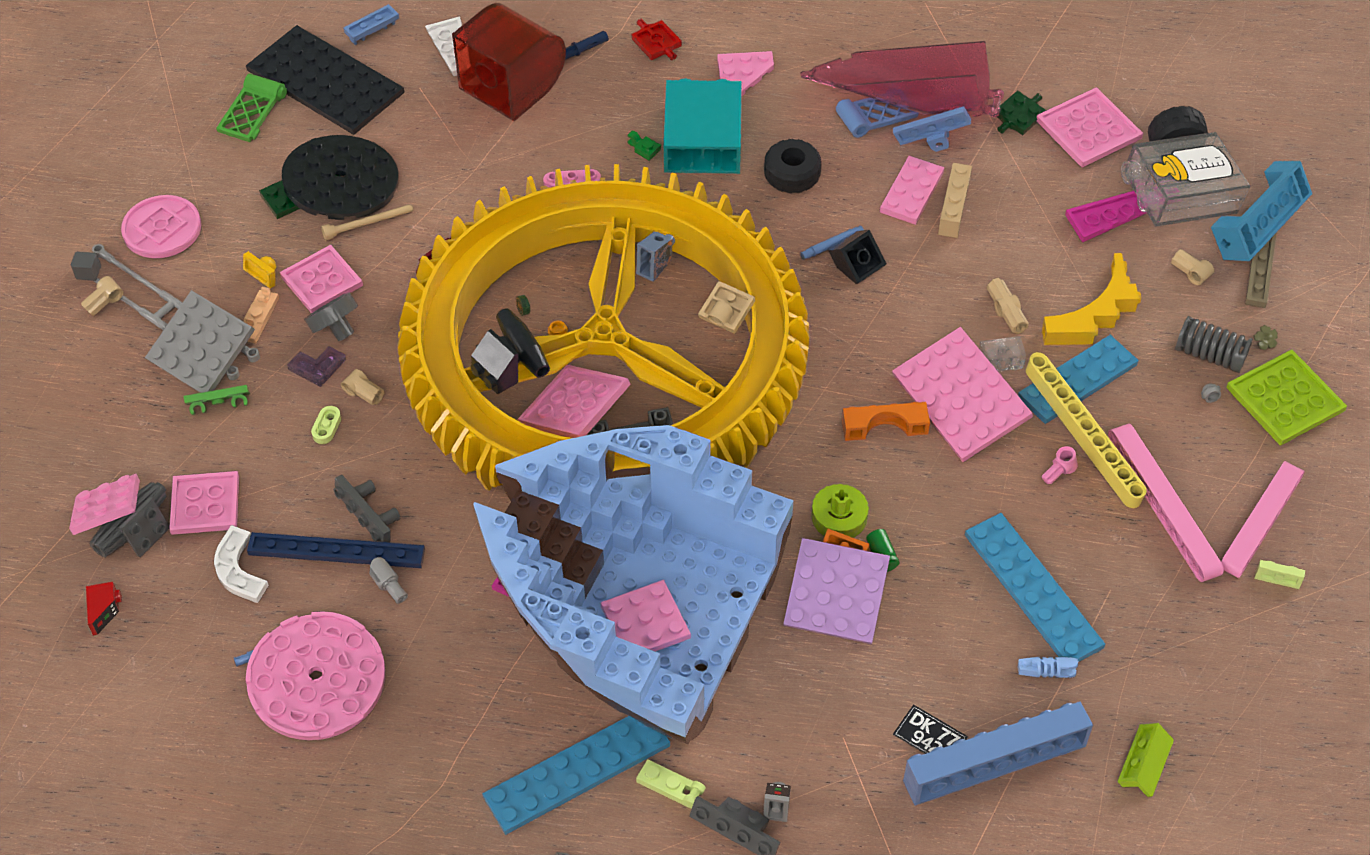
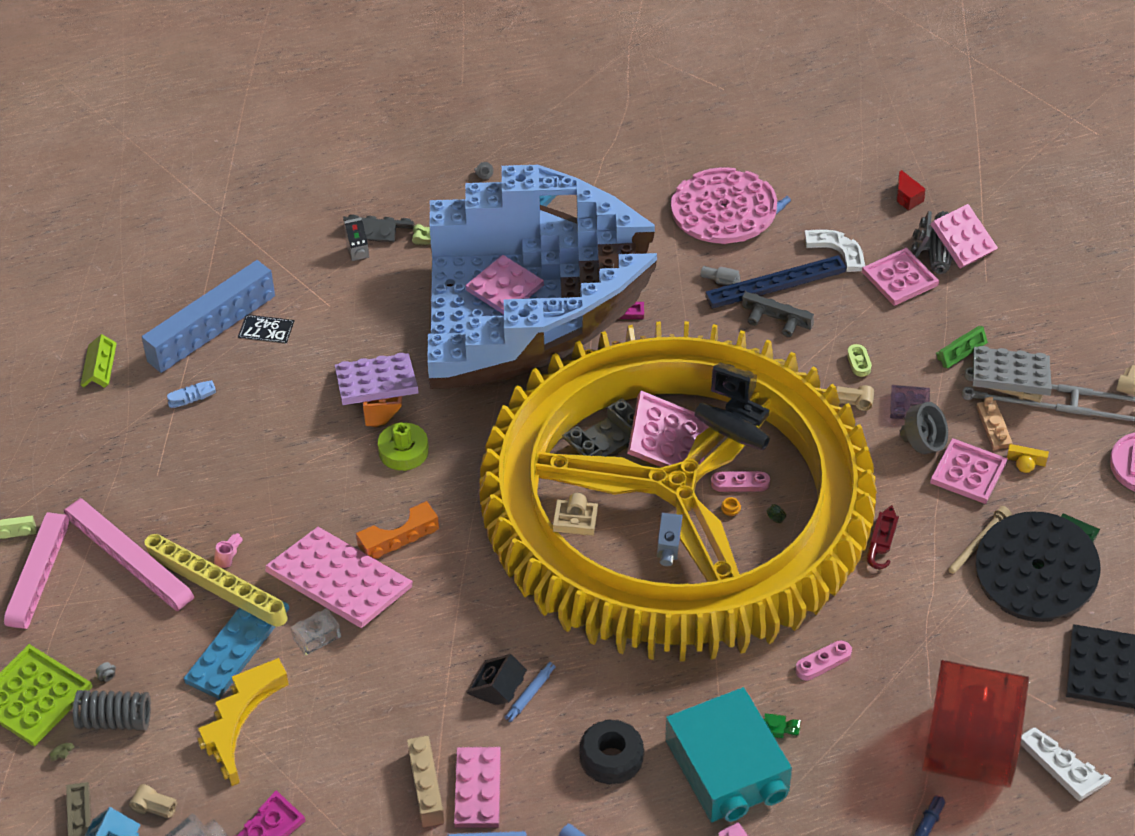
camera: 155 degrees right, 5 degrees down
(881, 544) = (354, 428): green piece -> none
(1007, 306) = (328, 685): tan piece -> none
(1034, 589) = (222, 450): dark azure plate -> none

